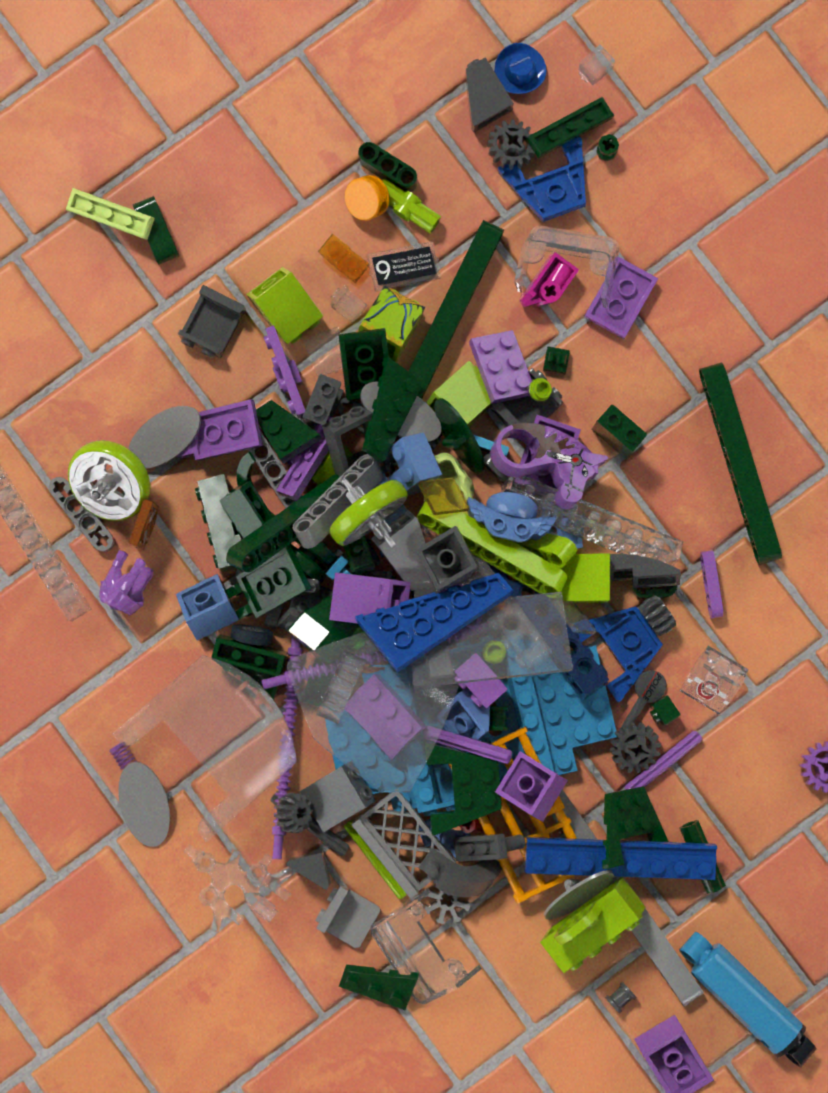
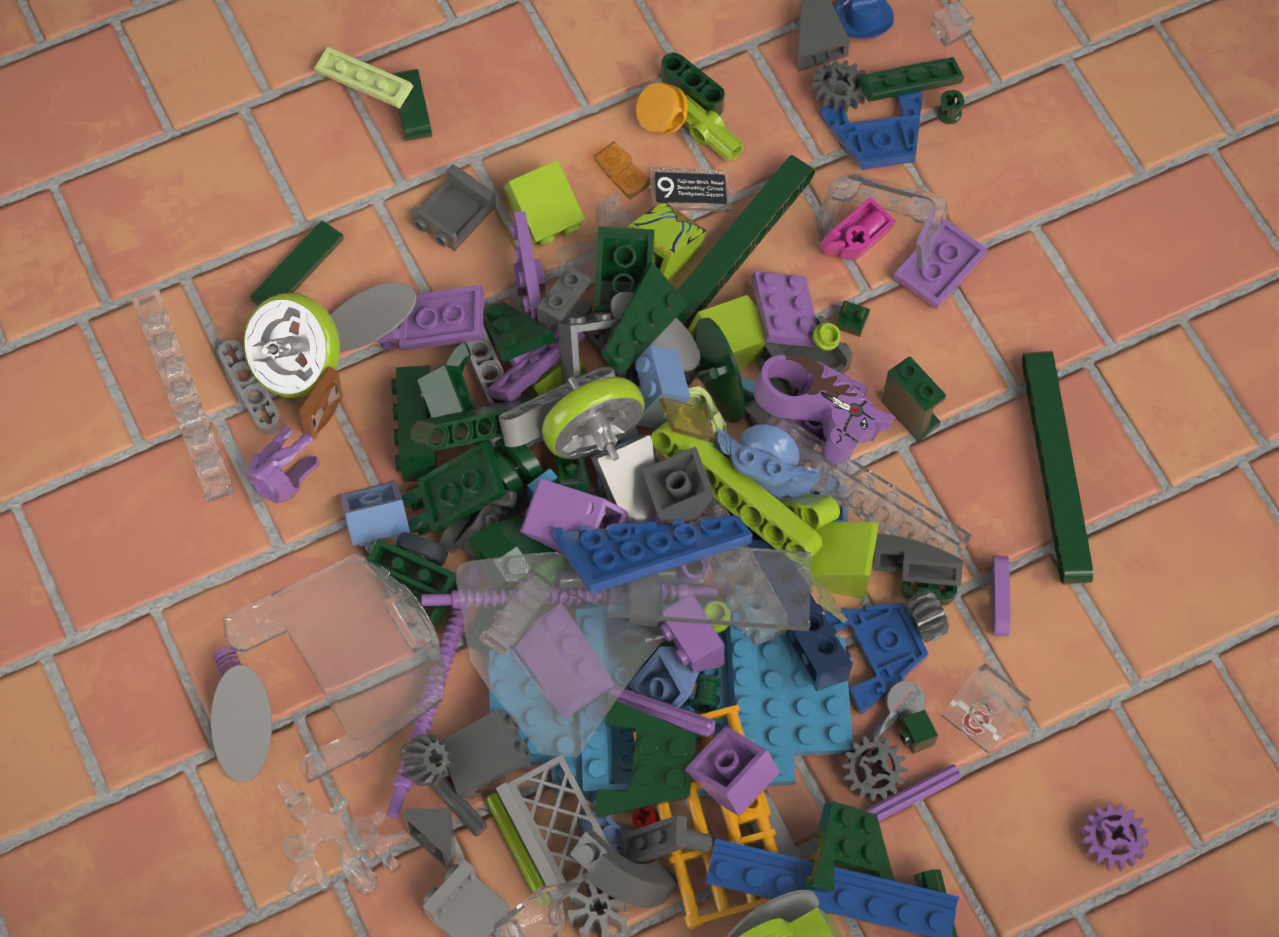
camera: 10 degrees right, 20 degrees down
(95, 399) = (299, 263): none -> dark green tile

